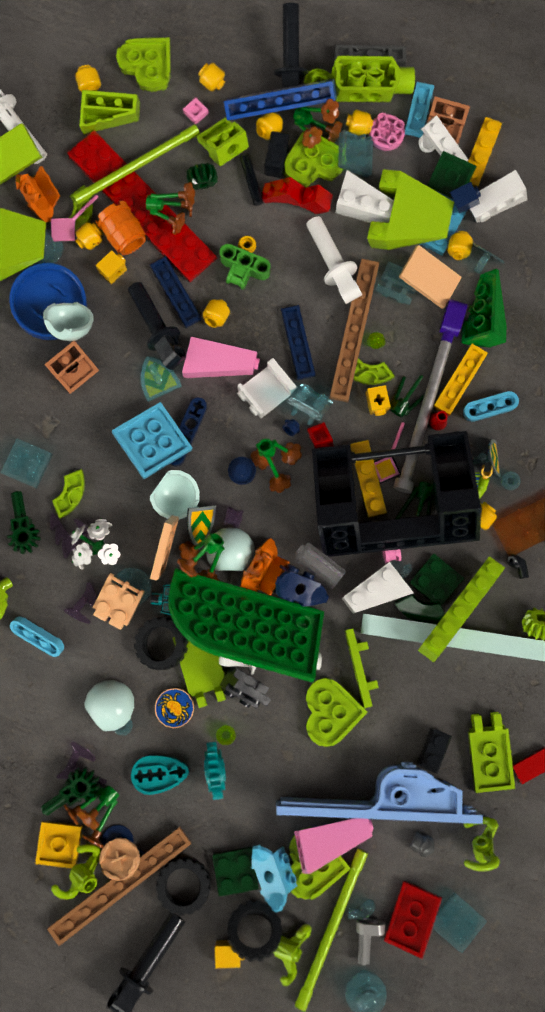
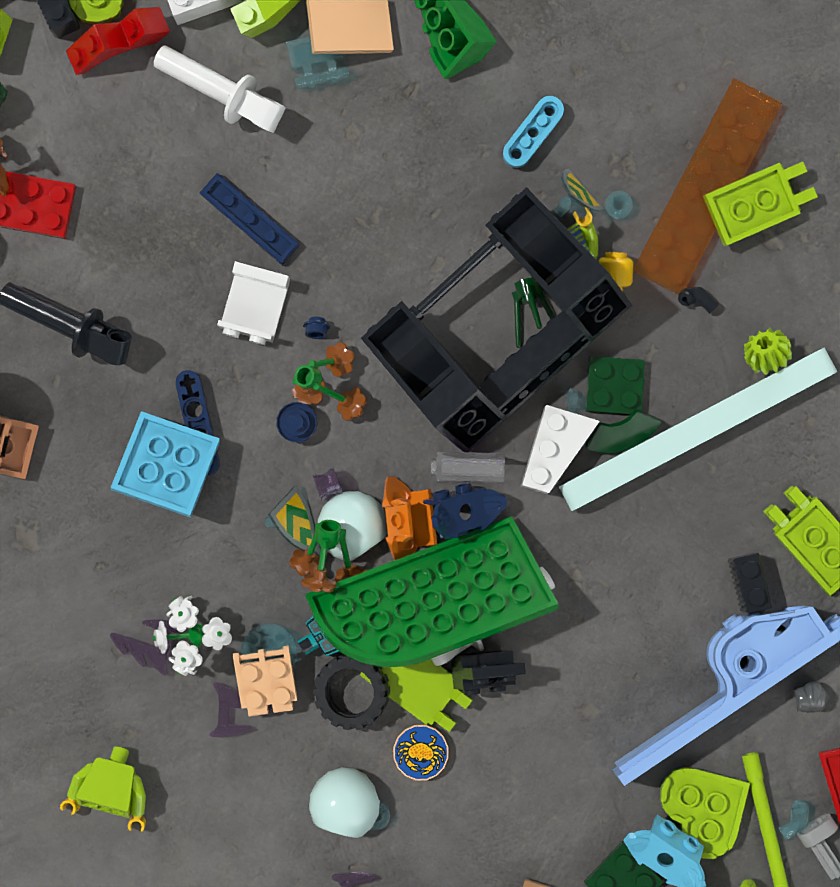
camera: 30 degrees left, 5 degrees up
(21, 525) = (86, 674): dark green gear -> none
(26, 463) = (36, 598): clear light blue plate -> none
(37, 636) = (202, 788): medium azure plate -> none
(71, 493) = (116, 596): lime tile -> none
(157, 379) = (114, 385): clear light blue shield -> none
(158, 785) = (464, 853): teal piece -> none
(164, 547) = (274, 579): light nougat tile -> none
(175, 292) = (57, 263): dark blue tile -> none
(175, 494) = (241, 509): light aqua cylinder -> none
(214, 770) = (519, 788): teal gear -> none
(216, 313) = (126, 255): yellow head -> none
(216, 359) = (168, 311): bright pink slope -> none
(223, 741) = (502, 748): clear neon green plate -> none
(240, 273) = (119, 185): bright green piece -> none
(247, 240) = (99, 135): yellow plate -> none
(251, 180) = (45, 57): black axle -> none
(309, 402) = (317, 283): clear light blue plate -> none
(320, 436) = (359, 314): red bracket -> none
(327, 842) = (704, 771): bright pink slope -> none
(332, 712) = (604, 624): lime plate -> none
(354, 332) = (307, 158): medium nougat plate -> none
(363, 685) = (617, 568): lime hinge -> none
(369, 481) = (453, 325): yellow plate -> none
(372, 374) = (361, 196): lime tile -> none
(376, 340) = (341, 150): clear neon green plate -> none
(382, 395) = (394, 210): yellow brick -> none
(387, 467) = (466, 294): piece -> none
(392, 555) = (544, 394): bright pink wheel -> none
(400, 406) = (427, 209): dark green plant -> none
(436, 423) = (483, 200): red cone -> none
(450, 328) = (418, 70): flat silver piece -> none
(460, 379) = (474, 125): yellow plate -> none
(461, 609) = (667, 400): lime brick -> none

